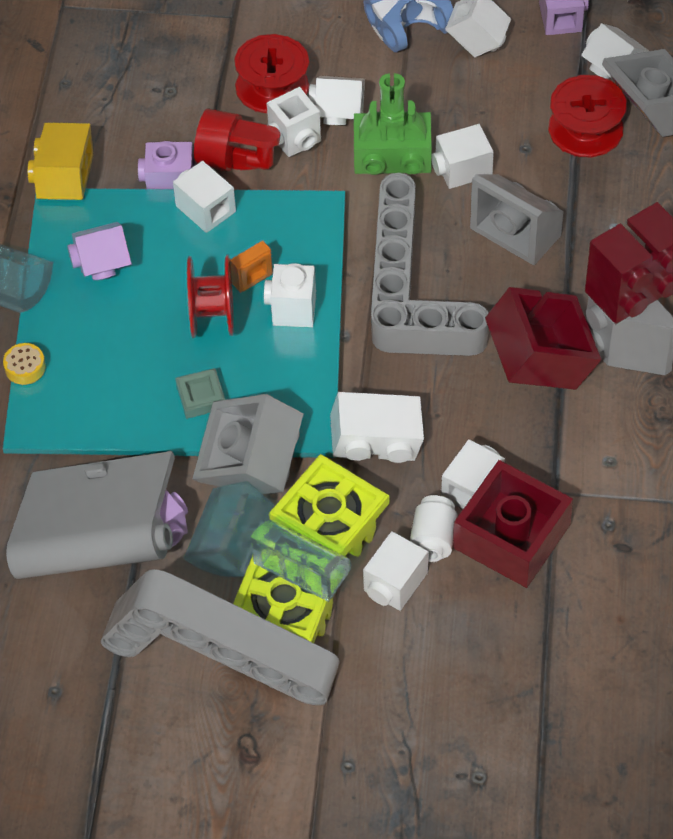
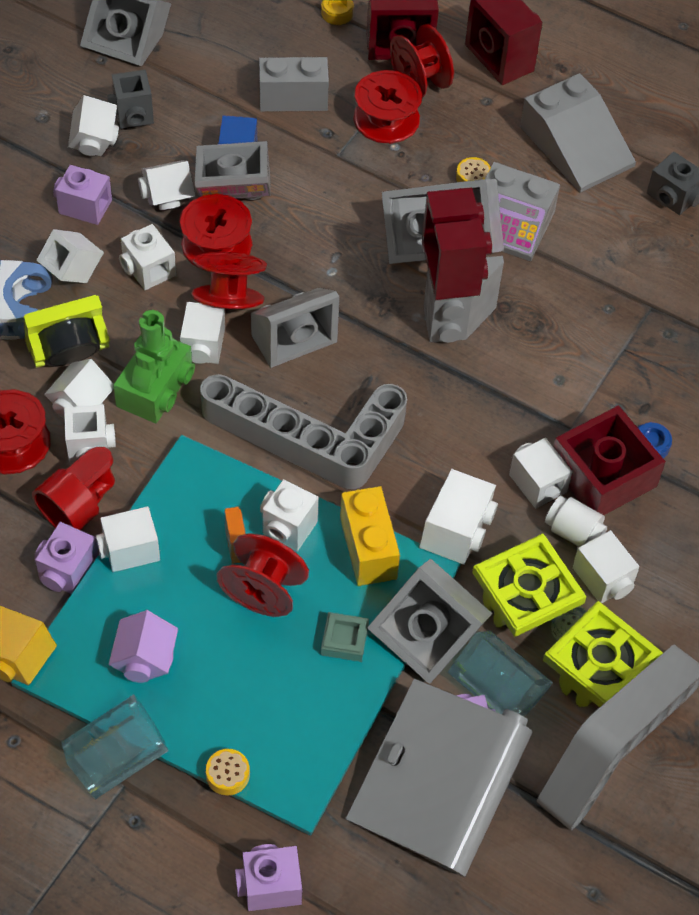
camera: 70 degrees left, 0 degrees up
(299, 559) = (590, 620): clear light blue brick -> none
(306, 361) = (369, 536): none -> yellow brick
(384, 50) = (66, 332): none -> piece
(522, 80) = (147, 257): none -> white brick
(525, 143) = (229, 280): none -> red piece
(542, 338) = (442, 359): dark red piece -> none
(580, 565) = (658, 436): none -> blue tile

